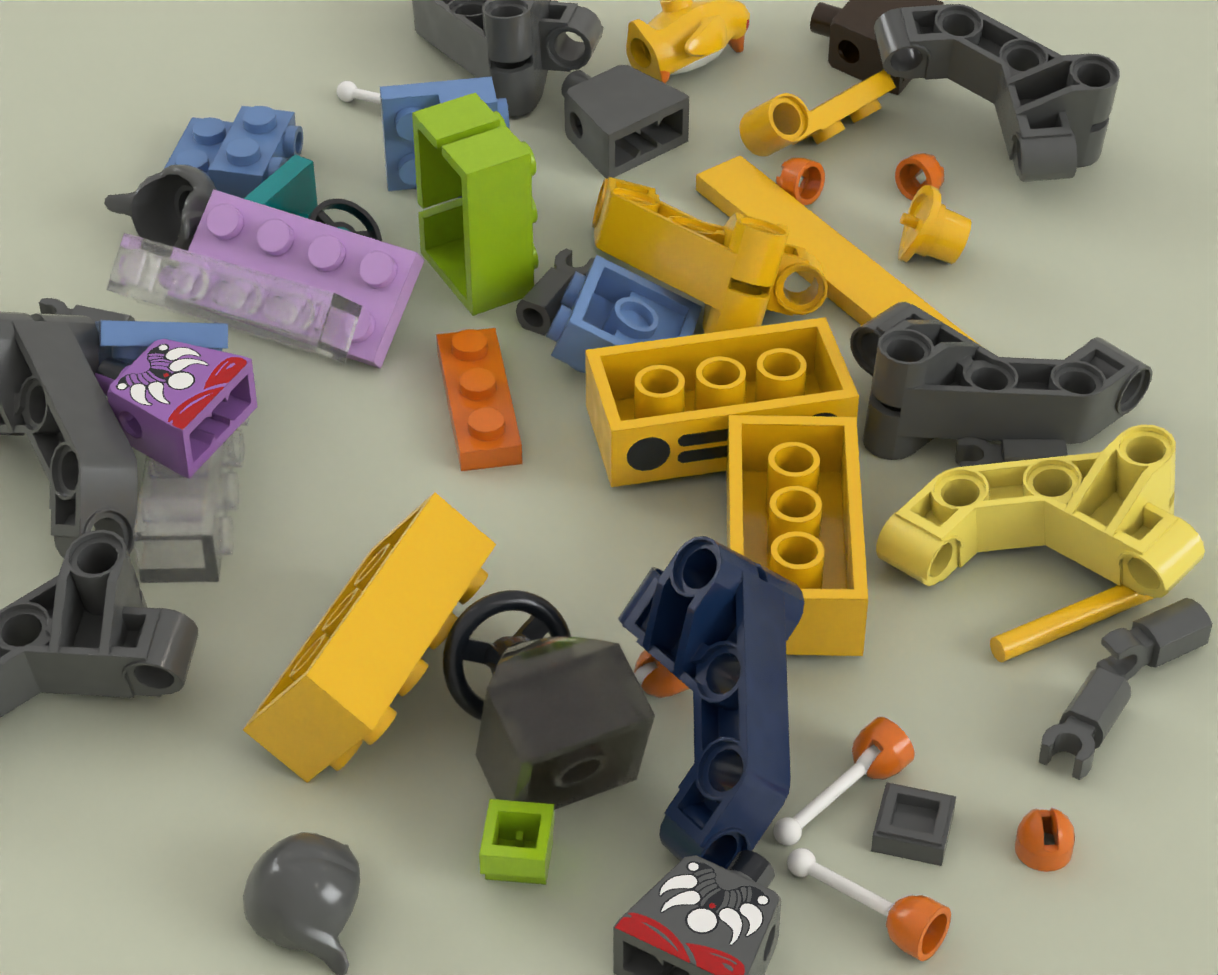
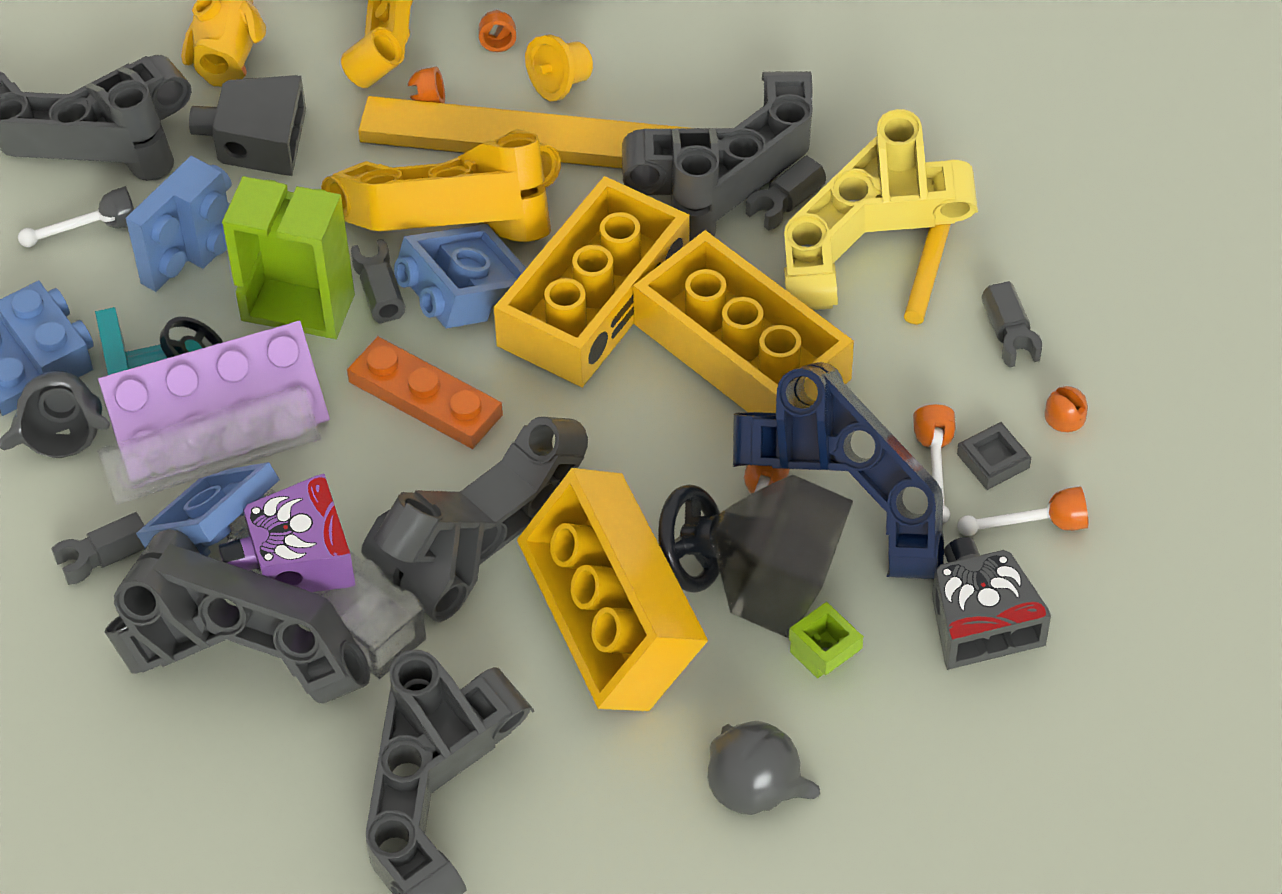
camera: 45 degrees left, 10 degrees up
(322, 505) = (441, 537): none -> dark grey connector
(1157, 638) = (988, 244): dark grey bar -> none

